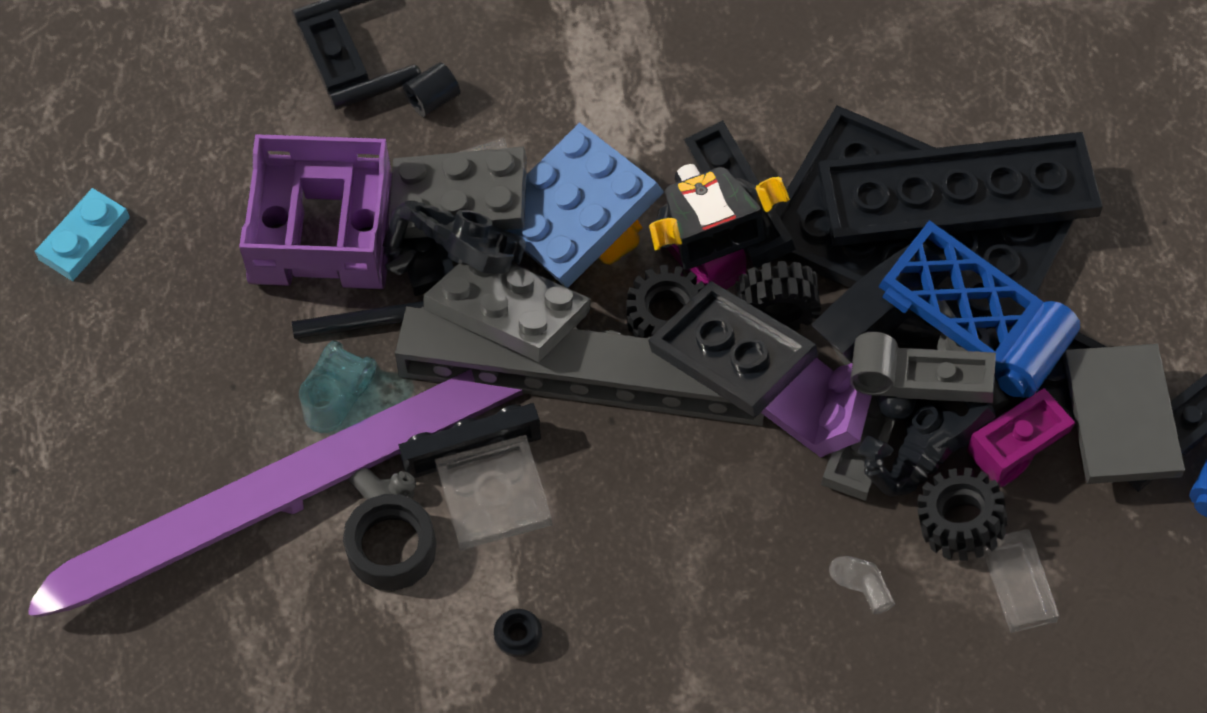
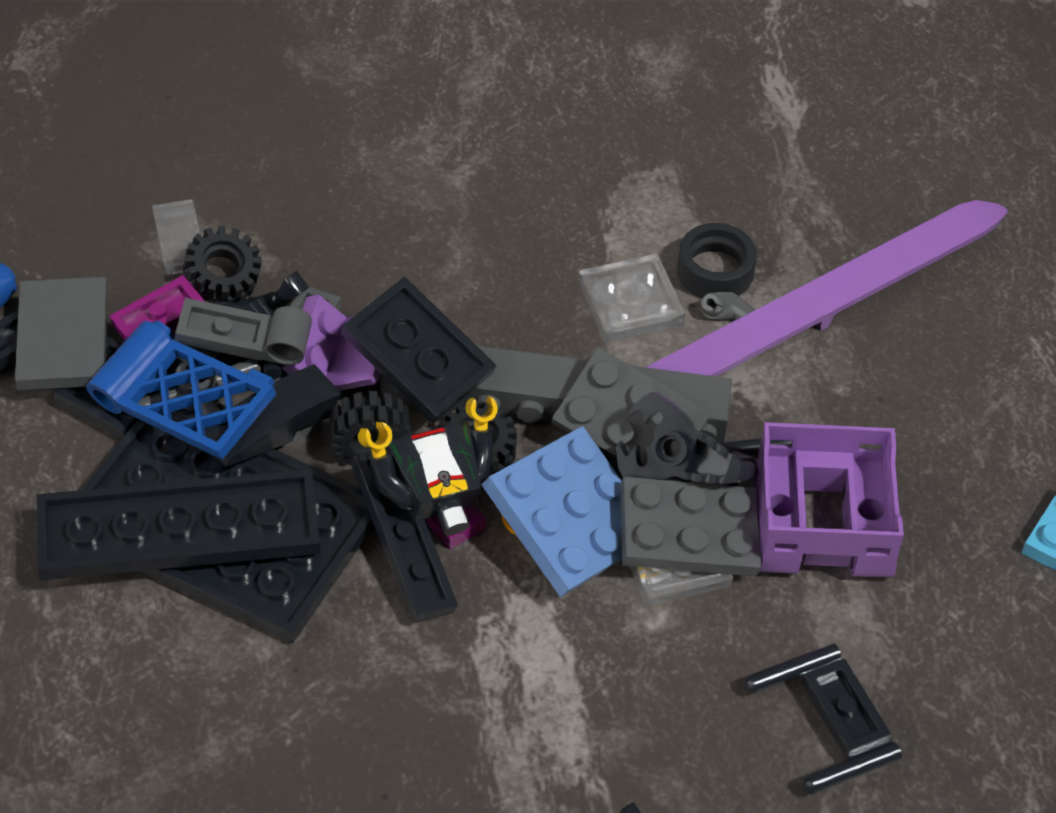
camera: 175 degrees right, 10 degrees down
(337, 379) = (785, 376): clear light blue piece -> none
(431, 89) = (731, 662): black gear -> none
(510, 422) = (657, 330): black plate -> none
(513, 620) = (602, 204): black plate -> none
(864, 578) = (321, 242): clear arm -> none

